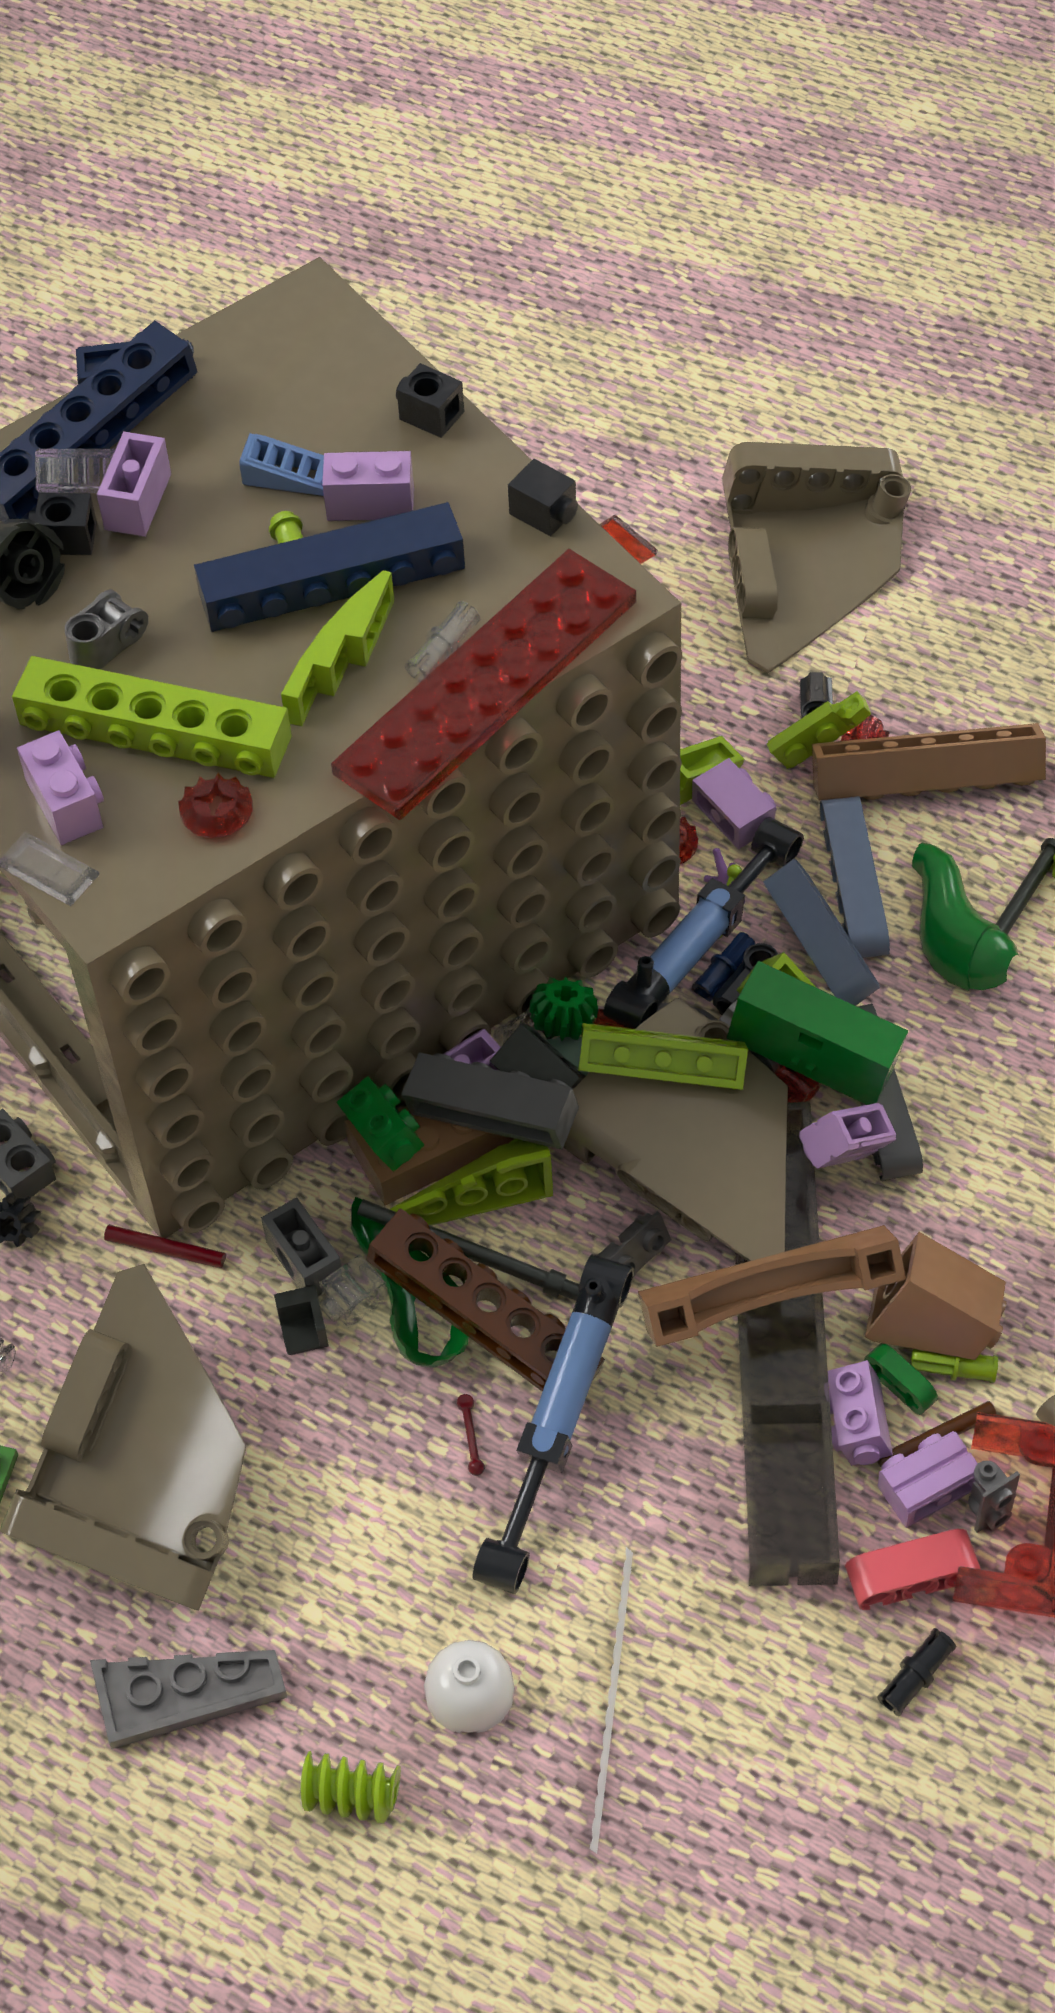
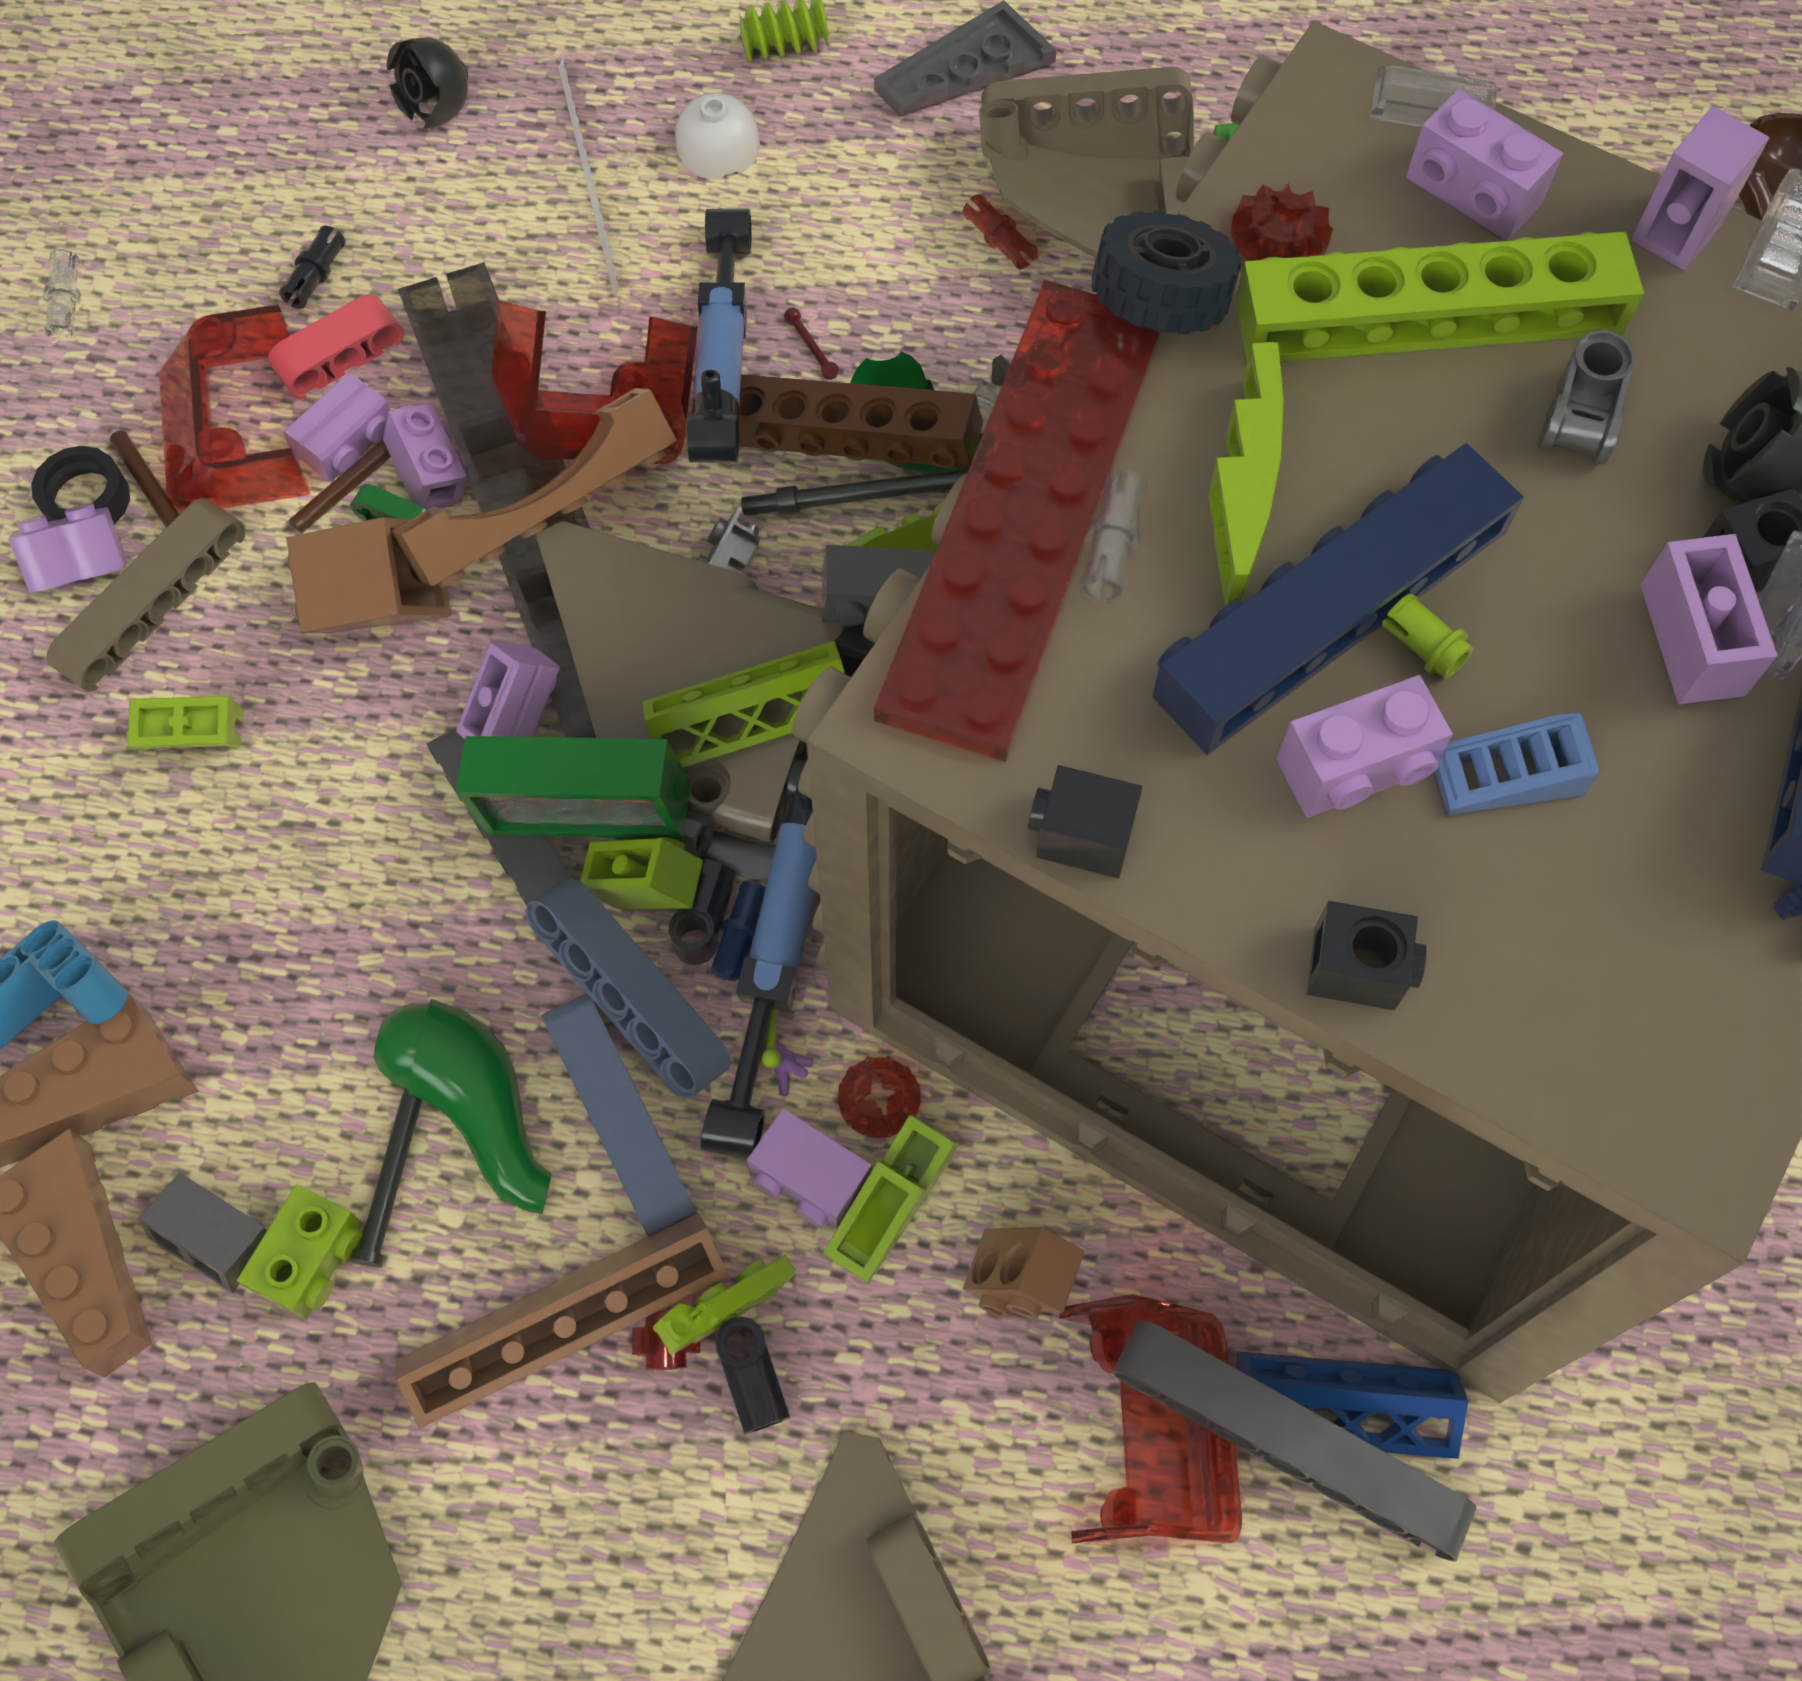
camera: 155 degrees right, 10 degrees up
(251, 1489) = (1000, 231): none -> clear red pin
(306, 750) = (1165, 272): none -> black wheel
(685, 1385) = (563, 422): none -> clear red windscreen
(738, 1846) = (427, 71): none -> pearl dark grey cylinder
(992, 1495) = (262, 405): flat silver hinge -> none

